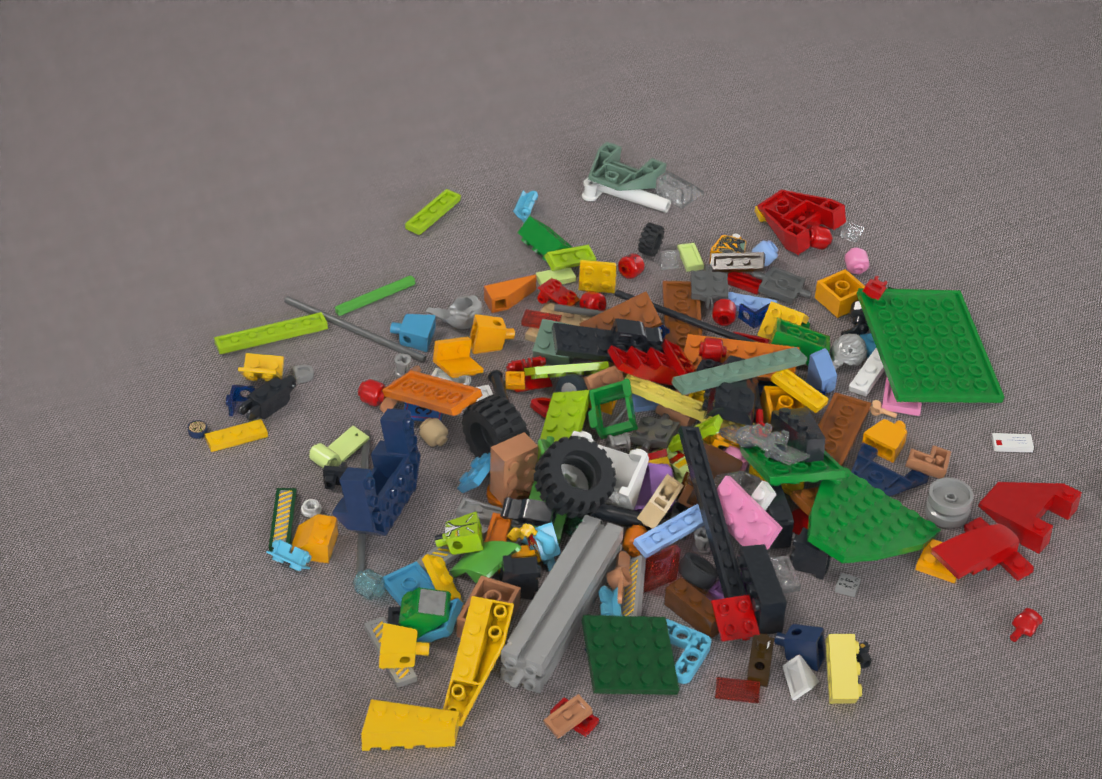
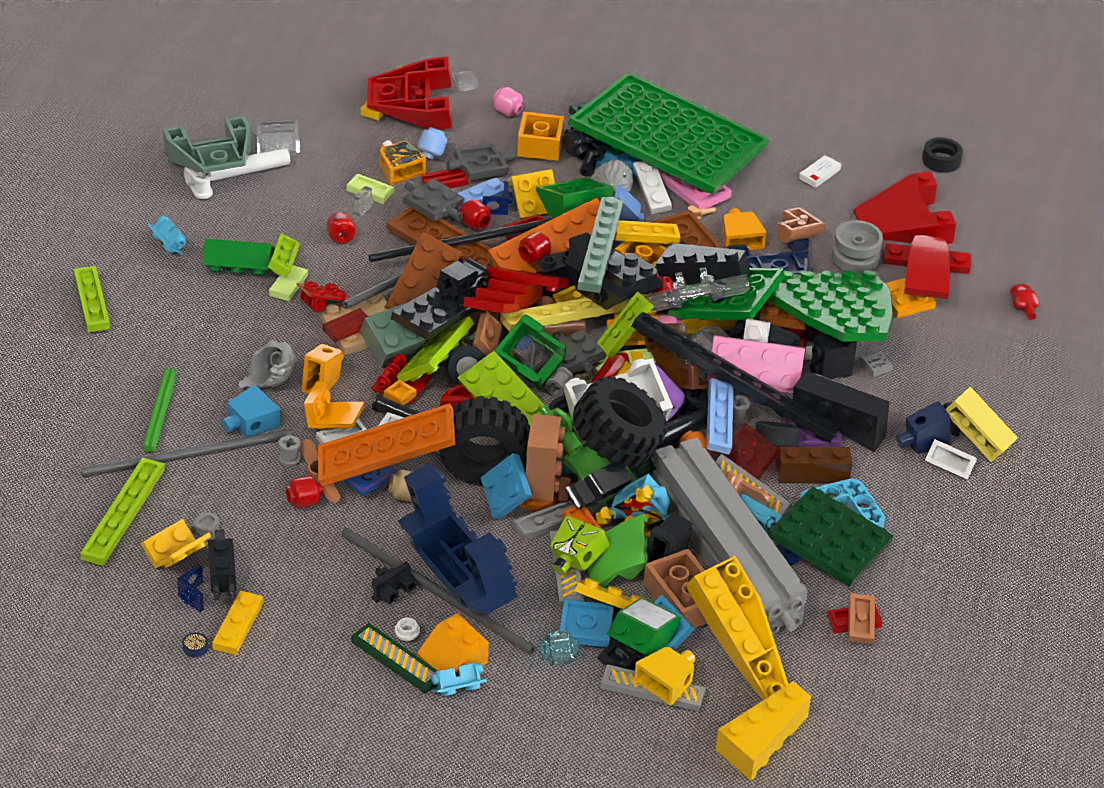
camera: 50 degrees left, 0 degrees up
(340, 449) = (349, 561): yellowish green door -> none
(508, 293) = (274, 322): orange slope -> none
(593, 300) = (362, 279): red head -> none
(597, 276) = (333, 256): yellow bracket -> none
(651, 239) = (327, 192): black tyre -> none
(660, 502) = (688, 399): tan slope -> none
(735, 618) = (859, 446): red hinge -> none
(737, 690) = (926, 502): clear red tile -> none
(738, 262) = (428, 163): plate -> none
(762, 652) = (916, 464): dark brown torso -> none
(820, 237) = (456, 98): red head -> none
(875, 288) = (585, 109): red plate -> none

